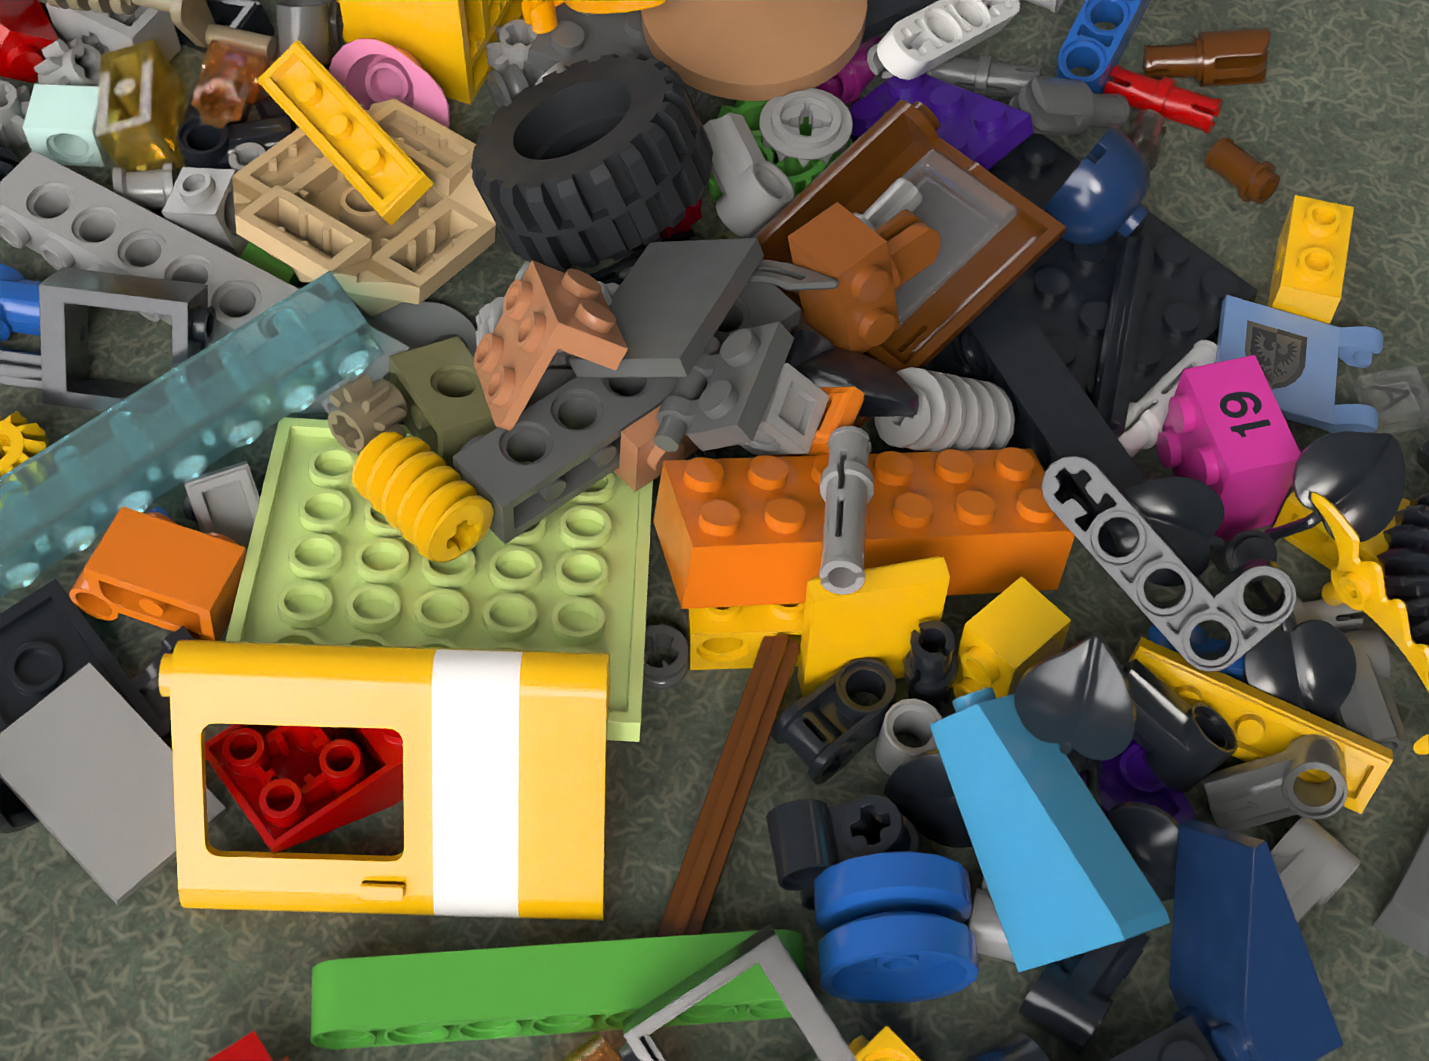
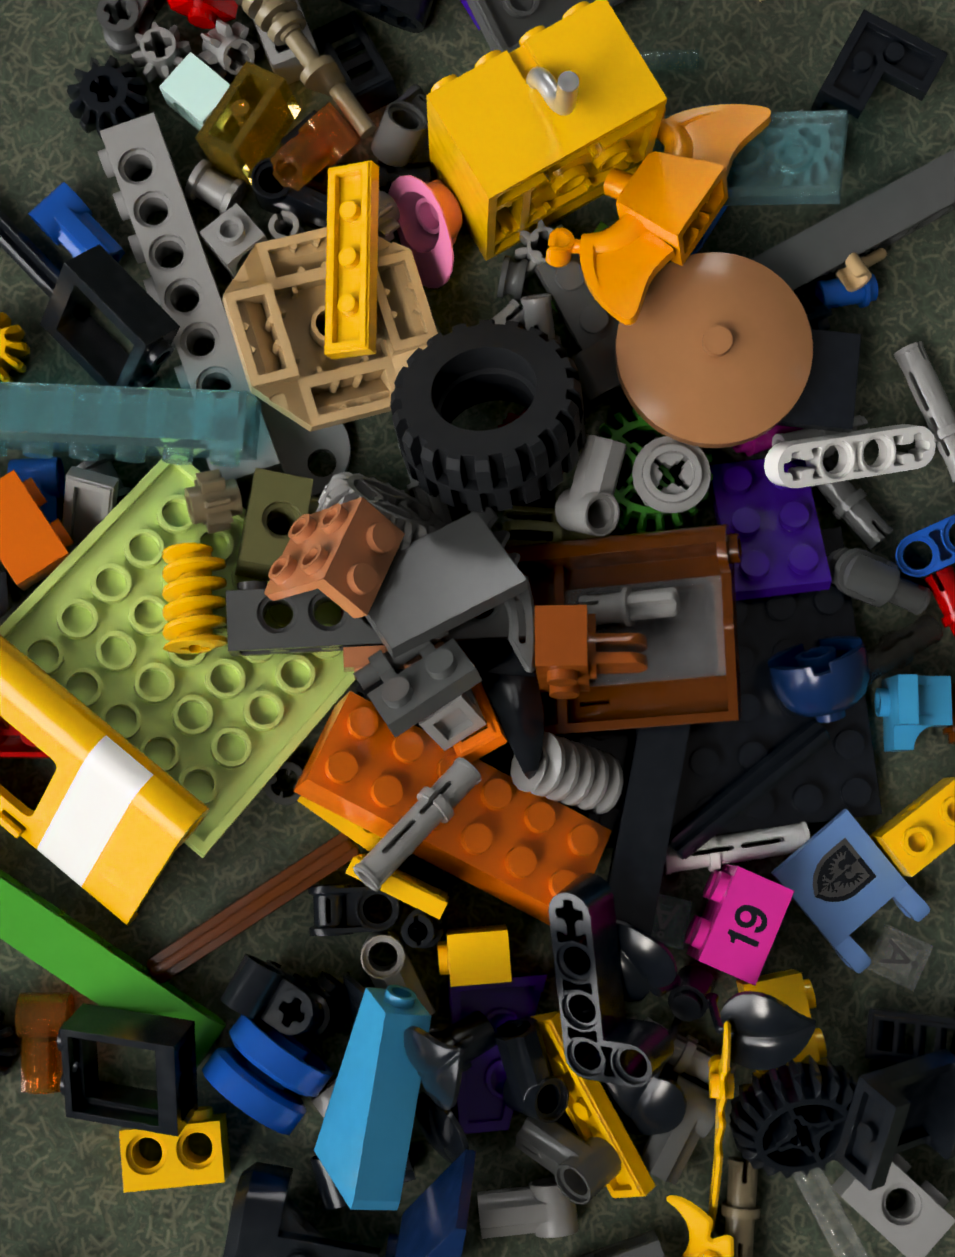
camera: 35 degrees right, 25 degrees up
(1196, 186) = (911, 705): none -> dark azure brick

